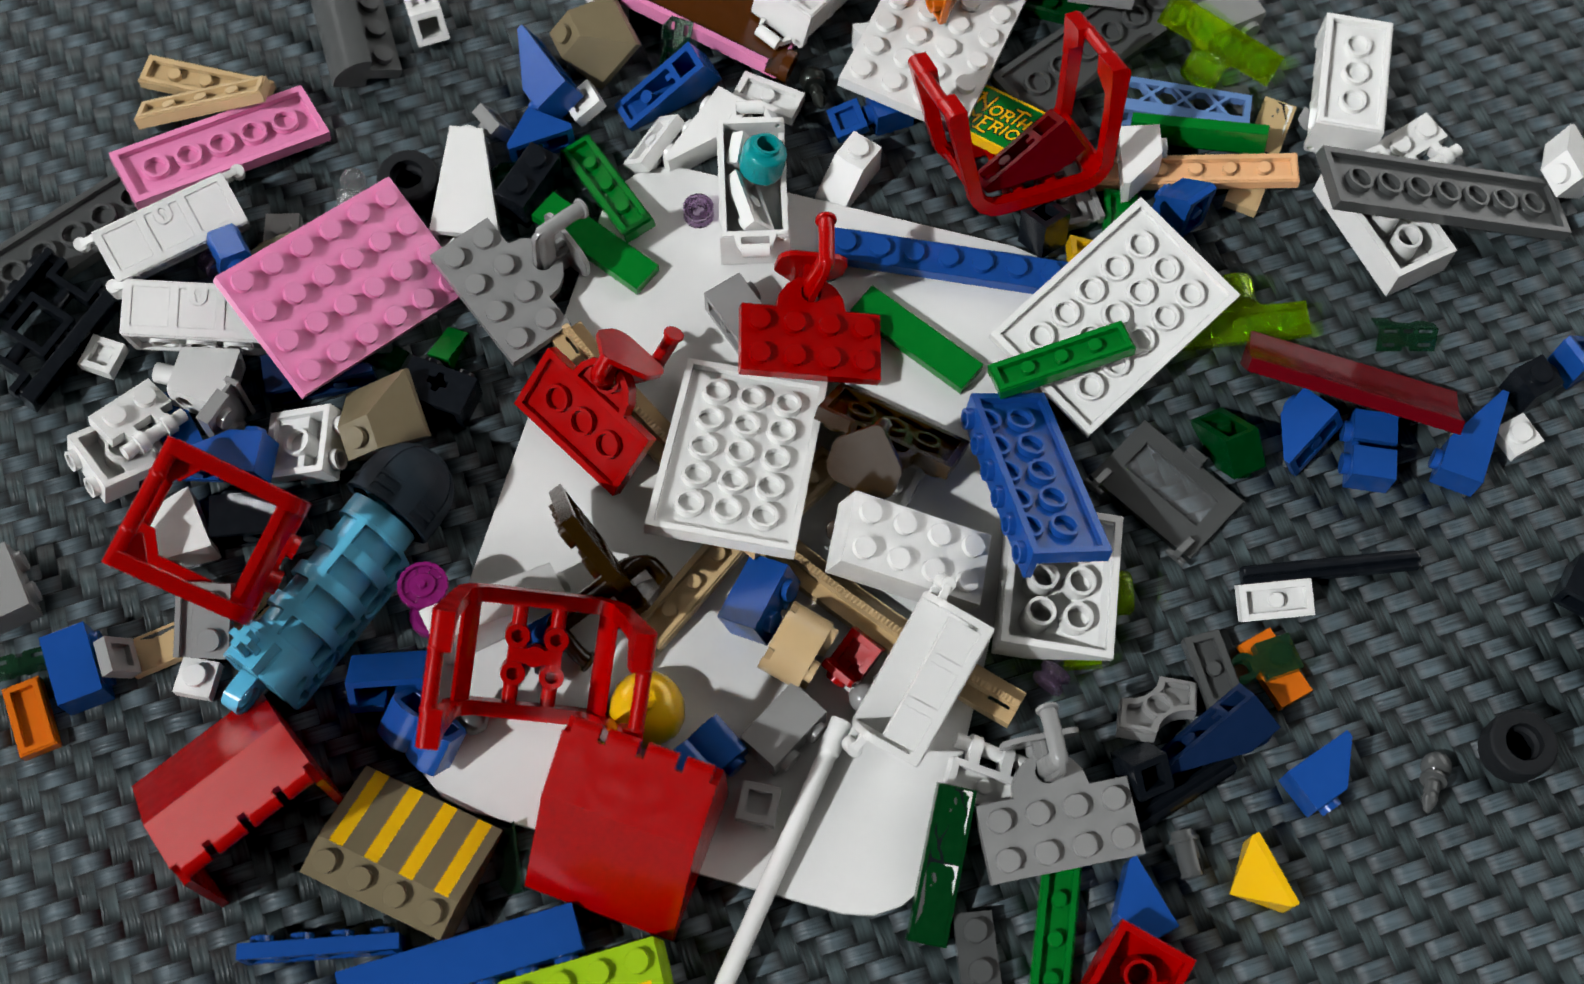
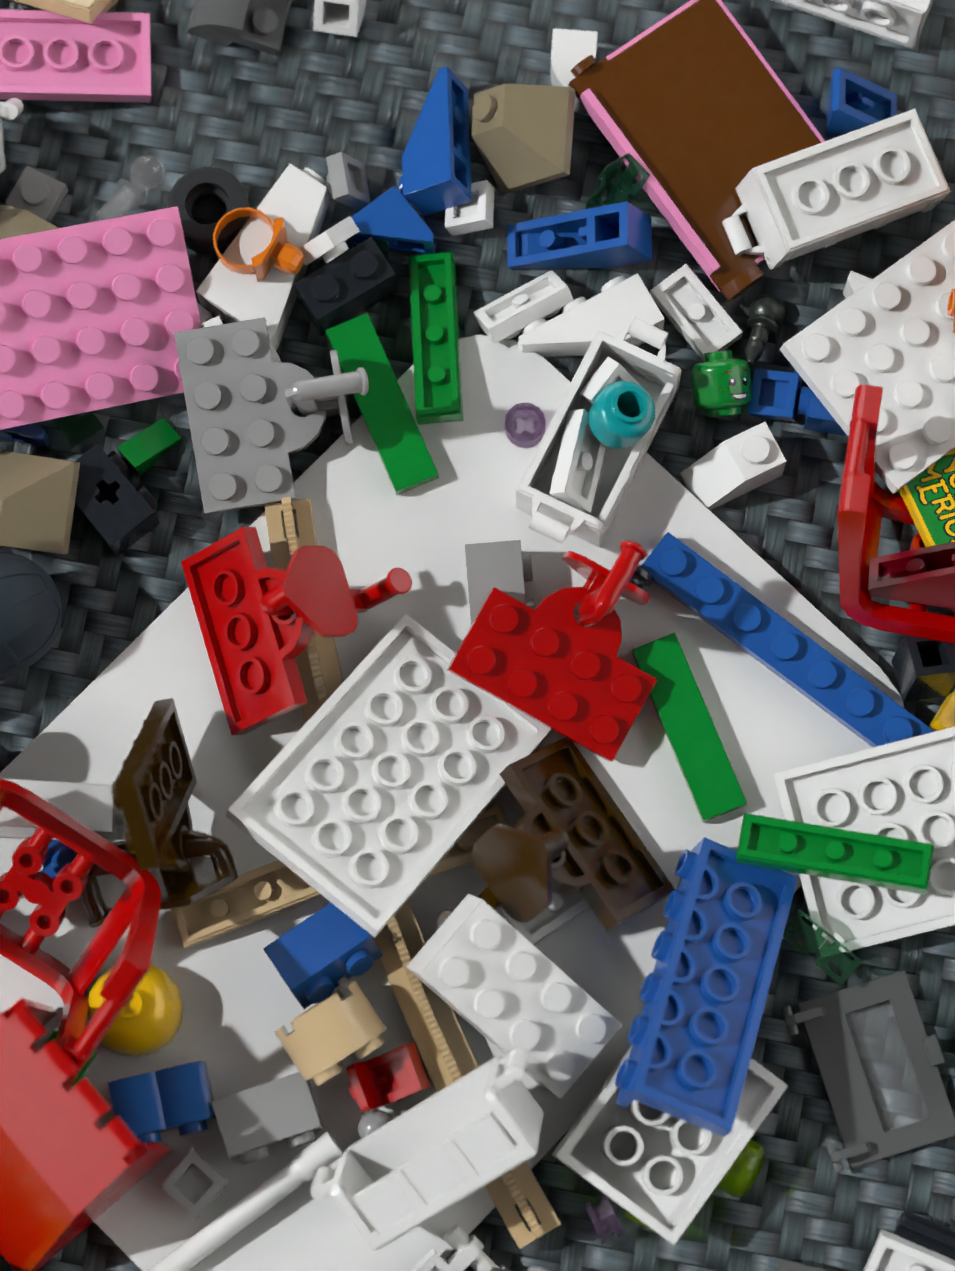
camera: 35 degrees right, 10 degrees up
(479, 176) = (283, 254): none -> orange piece
(504, 157) = (330, 242): none -> white plate
(811, 127) = (721, 384): none -> green head
(1092, 427) = (827, 952): none -> clear green piece

